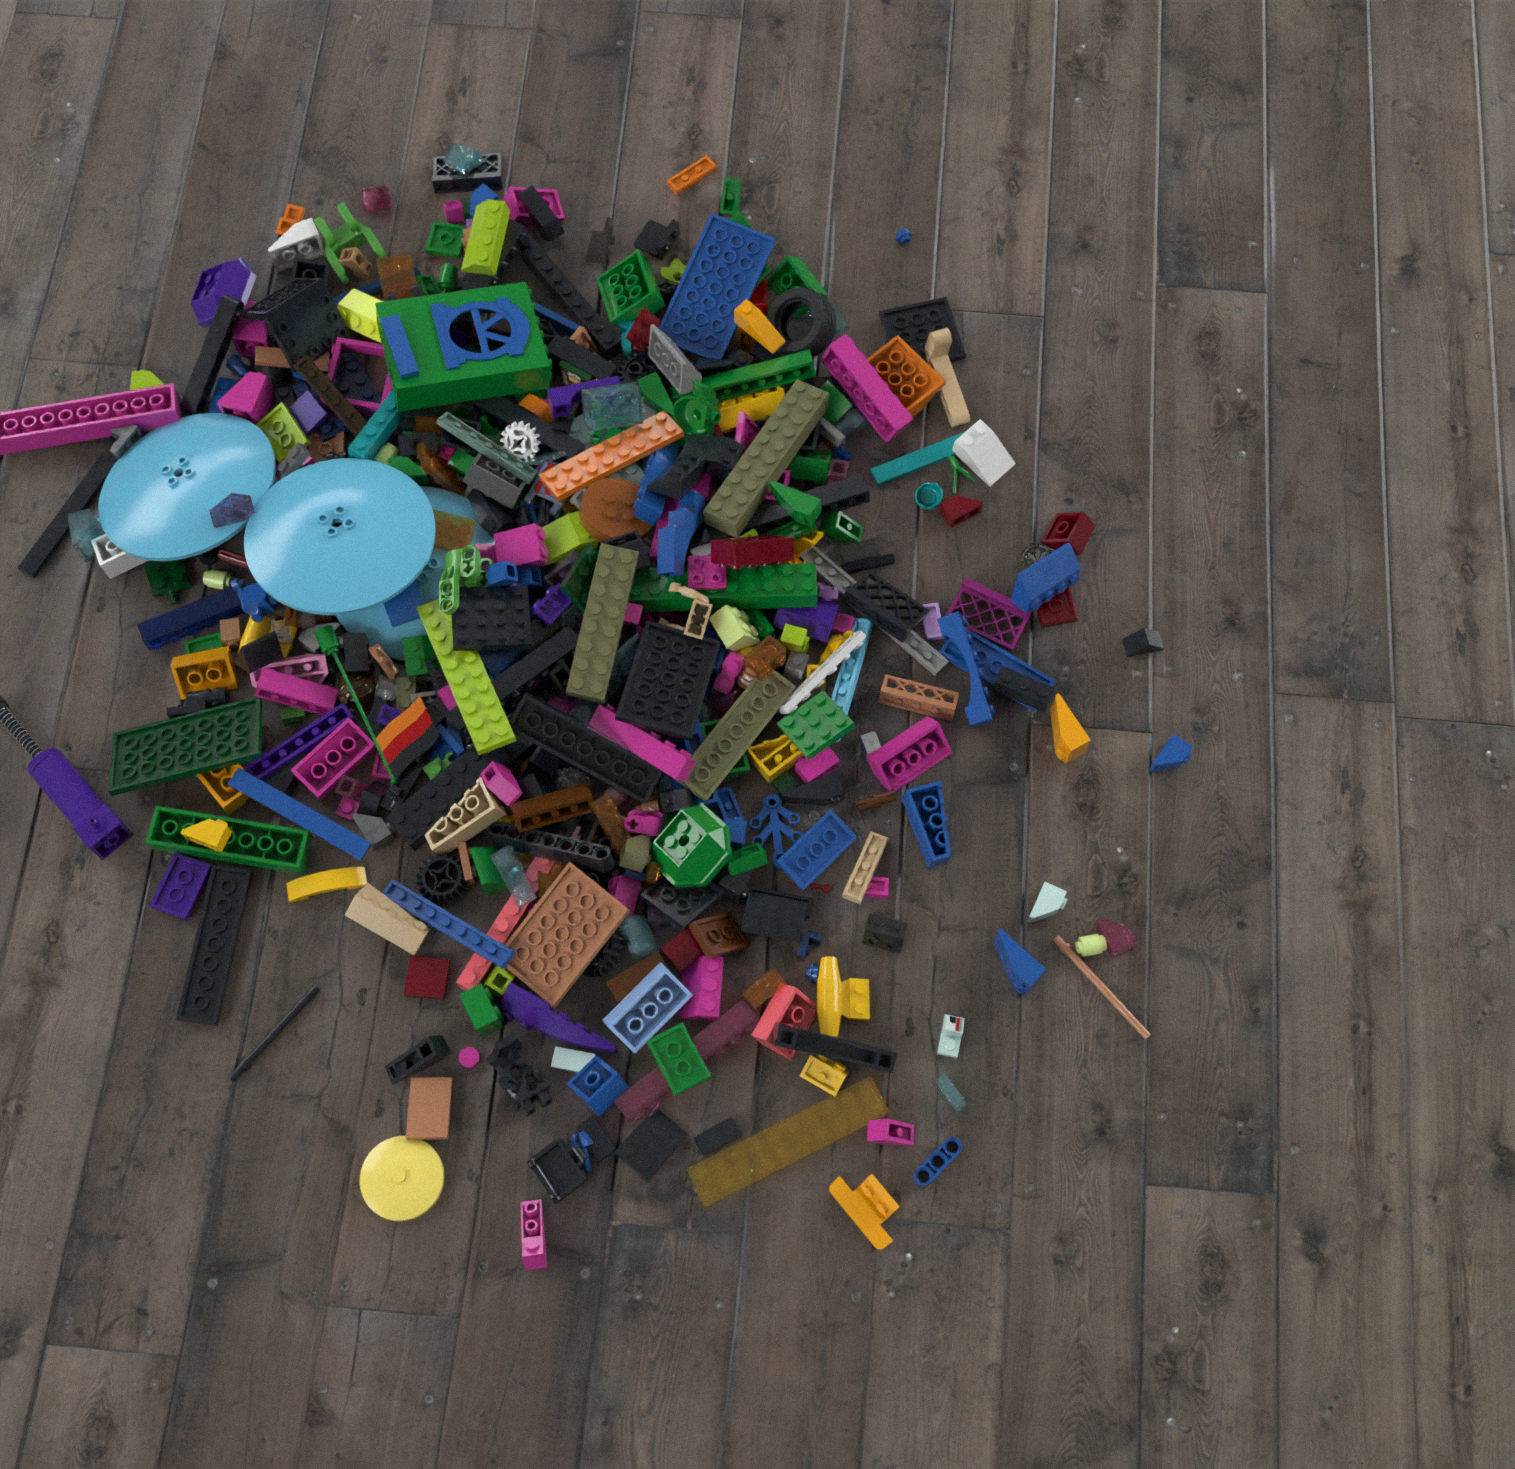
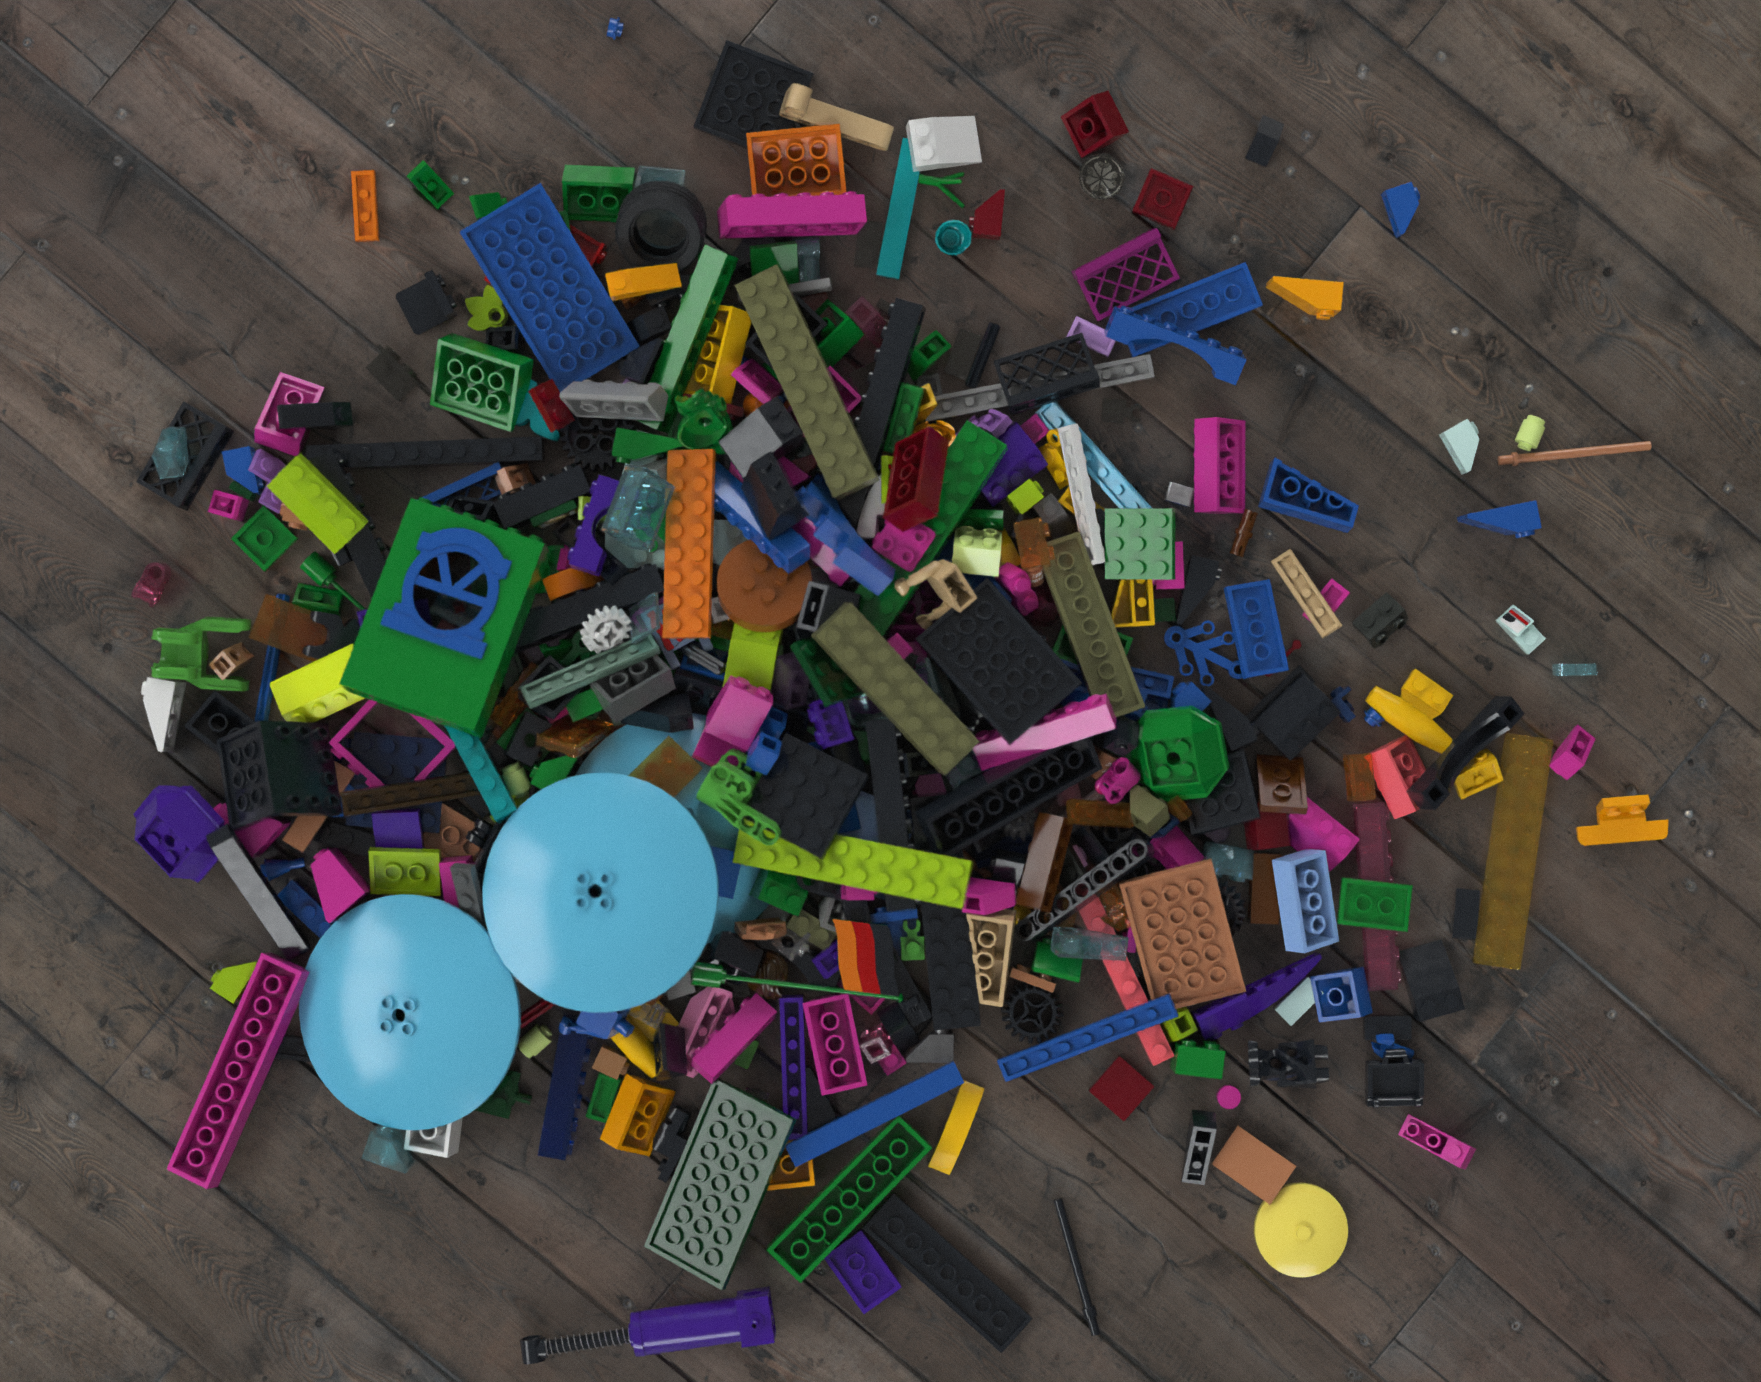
camera: 60 degrees left, 20 degrees up
(59, 526) = (343, 1152): black tile -> none
(125, 438) = (293, 1039): flat silver slope -> none
(209, 834) = (840, 1216): yellow slope -> none
(232, 510) = (496, 989): clear purple slope -> none
(292, 215) = (115, 696): orange slope -> none
(387, 919) = (1040, 1092): tan wedge -> none
(399, 346) = (420, 693): blue tile -> none
(746, 859) = (1224, 704): green slope -> none
(799, 505) = (894, 391): green slope -> none
(843, 453) = (841, 291): clear blue tile -> none
(917, 701) = (1172, 418): nougat fence -> none
(942, 1153) = (1636, 738): blue beam -> none
(1023, 689) = (1237, 304): black brick -> none
(1046, 579) = (1140, 191): blue slope -> none
(1117, 937) = (1542, 403): clear pink slope -> none

